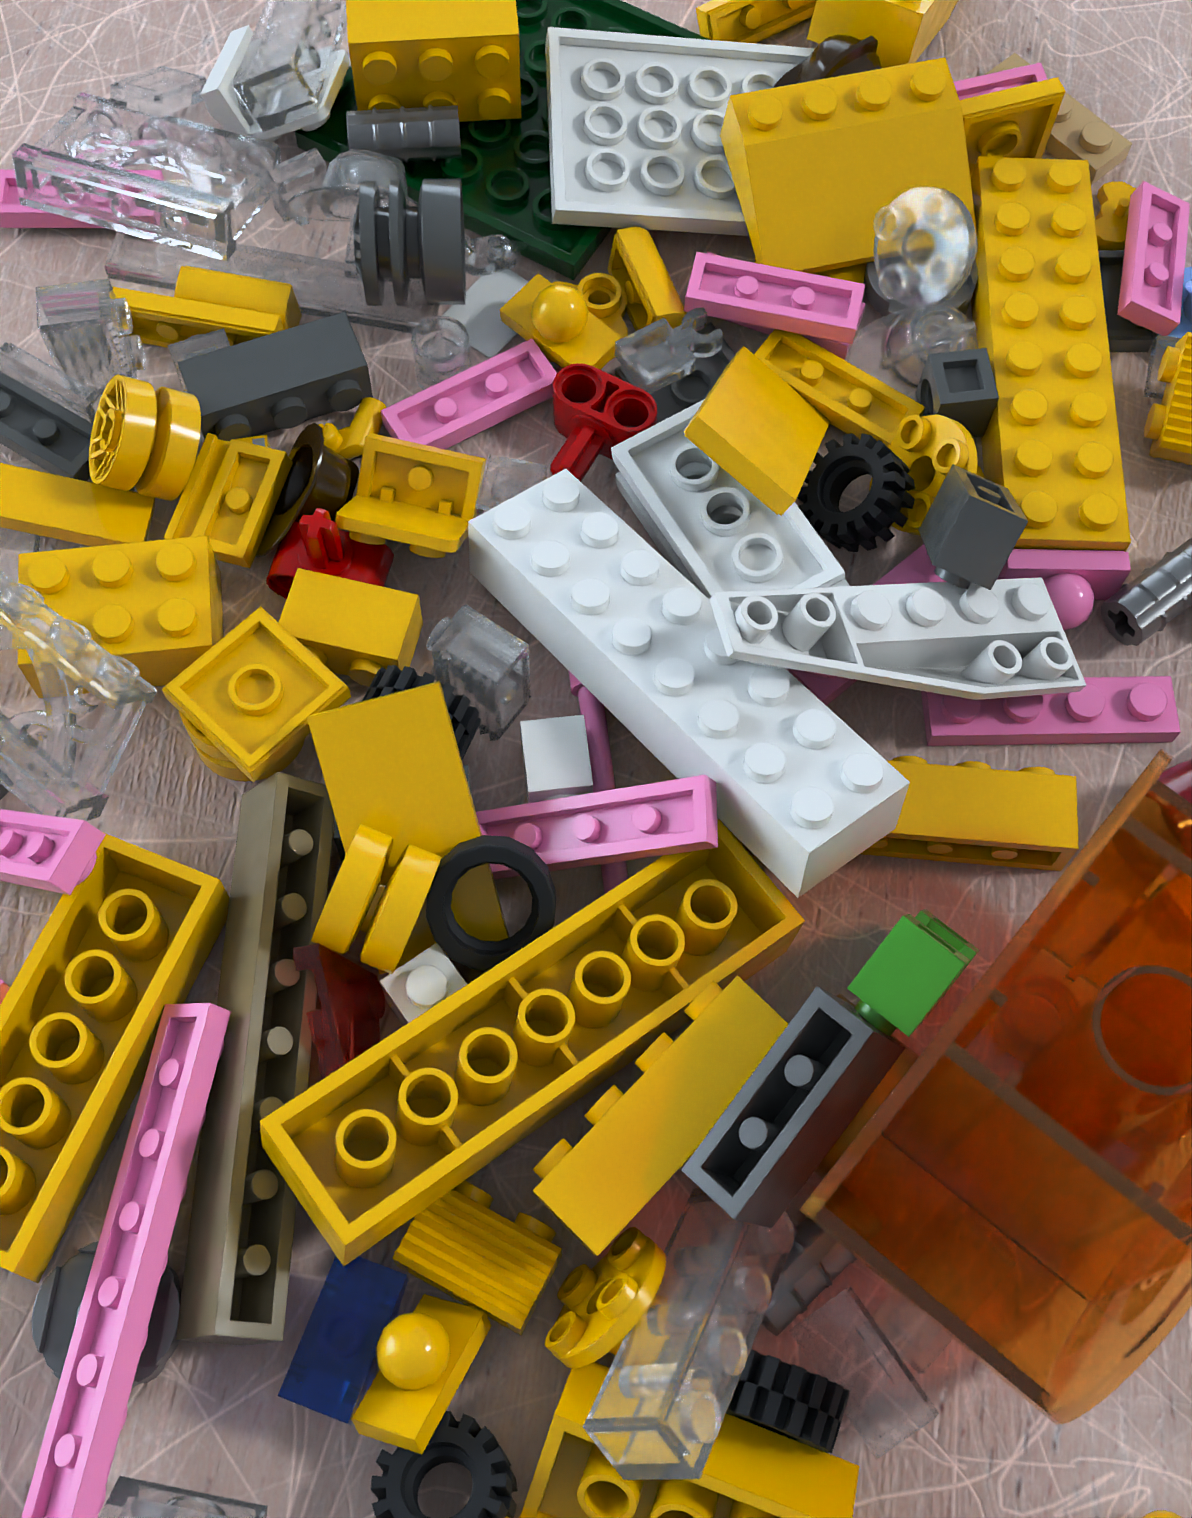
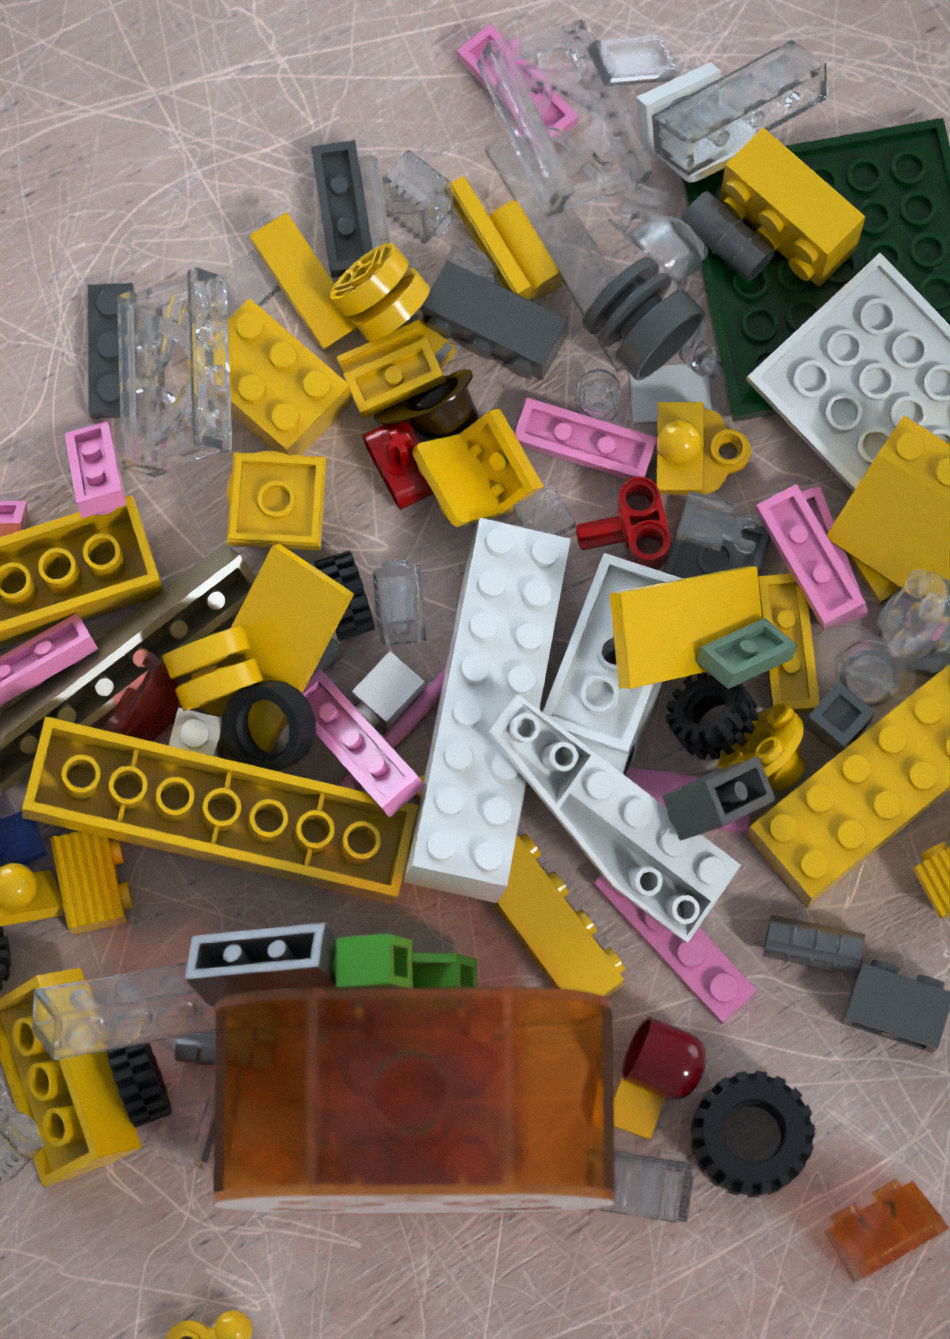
camera: 55 degrees right, 10 degrees up
(350, 439) = (496, 395): yellow arm -> none
(352, 623) = (369, 510): yellow brick -> none
(606, 1300) = (116, 957): yellow plate -> none
(644, 279) = (763, 469): yellow brick -> none
(662, 1117) = (207, 905): yellow slope -> none
(829, 409) = (746, 653): none -> sand green plate
(1071, 577) = (763, 881): bright pink tile -> none

